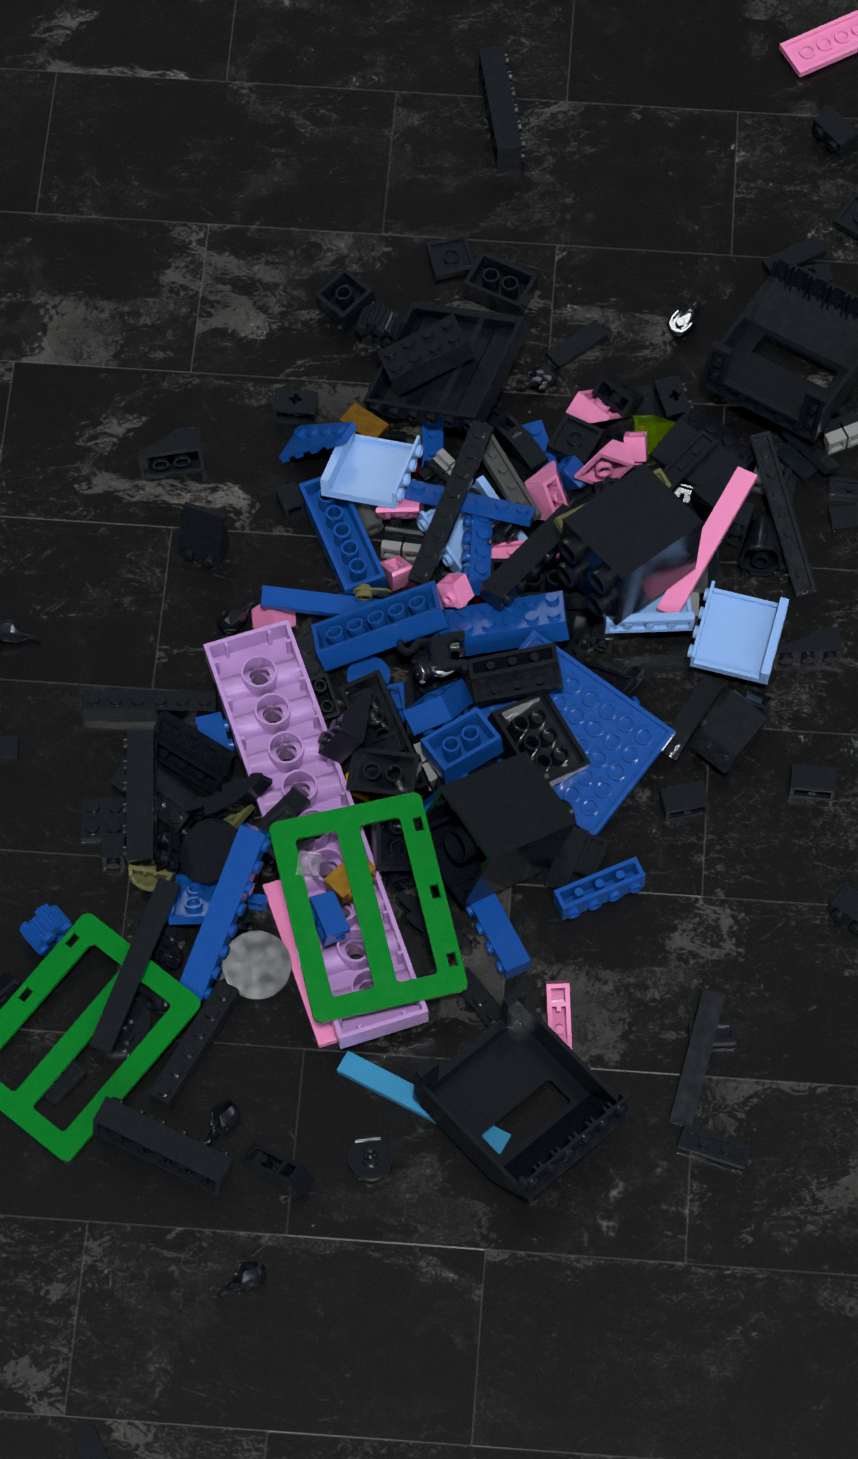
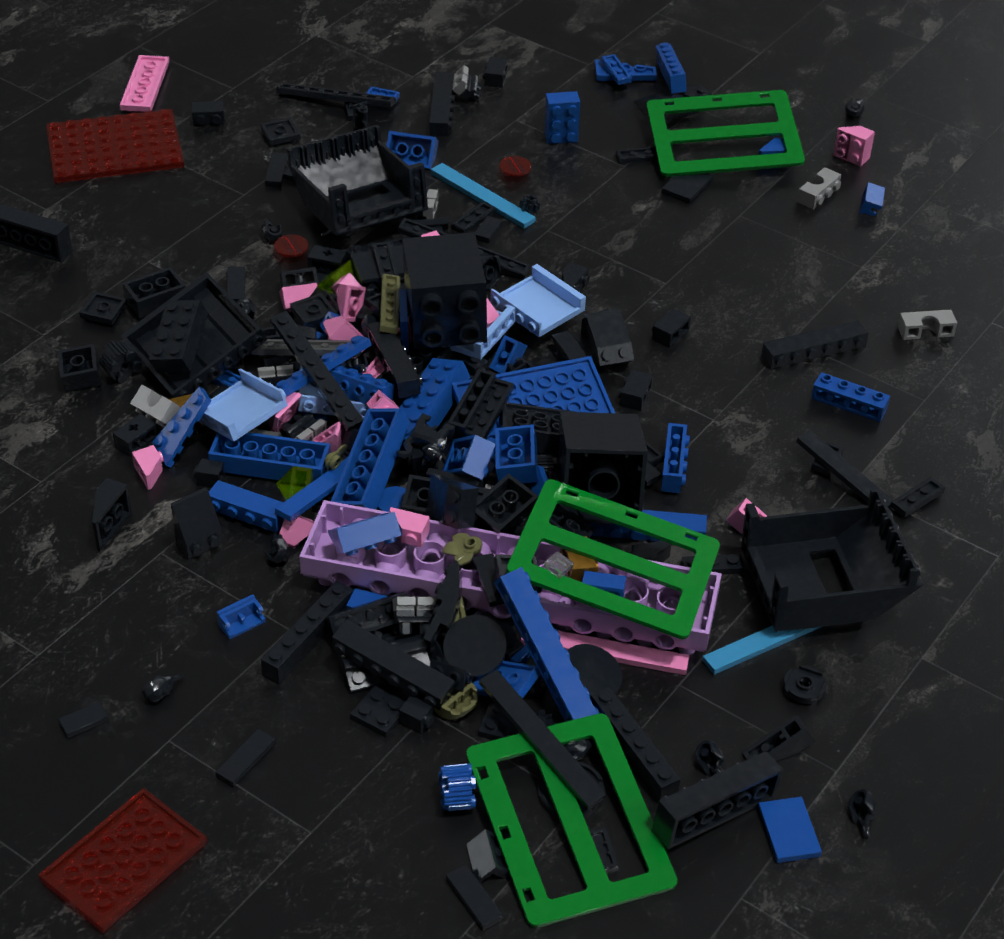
camera: 60 degrees left, 20 degrees down
(133, 641) = (240, 616): none -> blue hinge
(186, 1225) = (789, 829): none -> blue tile
(211, 774) = (413, 611): none -> hips
(260, 679) = (365, 533): none -> blue slope
(264, 444) = (148, 464): none -> bright pink slope
(264, 553) = (246, 506): none -> blue brick
(292, 712) = (413, 527): none -> bright pink slope
(299, 770) = (463, 547): none -> olive plate
(325, 580) = (294, 481): none -> clear neon green slope
(337, 389) = (154, 405): none -> light grey arch
(651, 652) = (507, 353): none -> blue slope
(670, 353) = (291, 245): none -> clear red piece
(715, 86) = (114, 145): none -> clear red plate
(828, 1011) = (850, 397): none -> blue brick

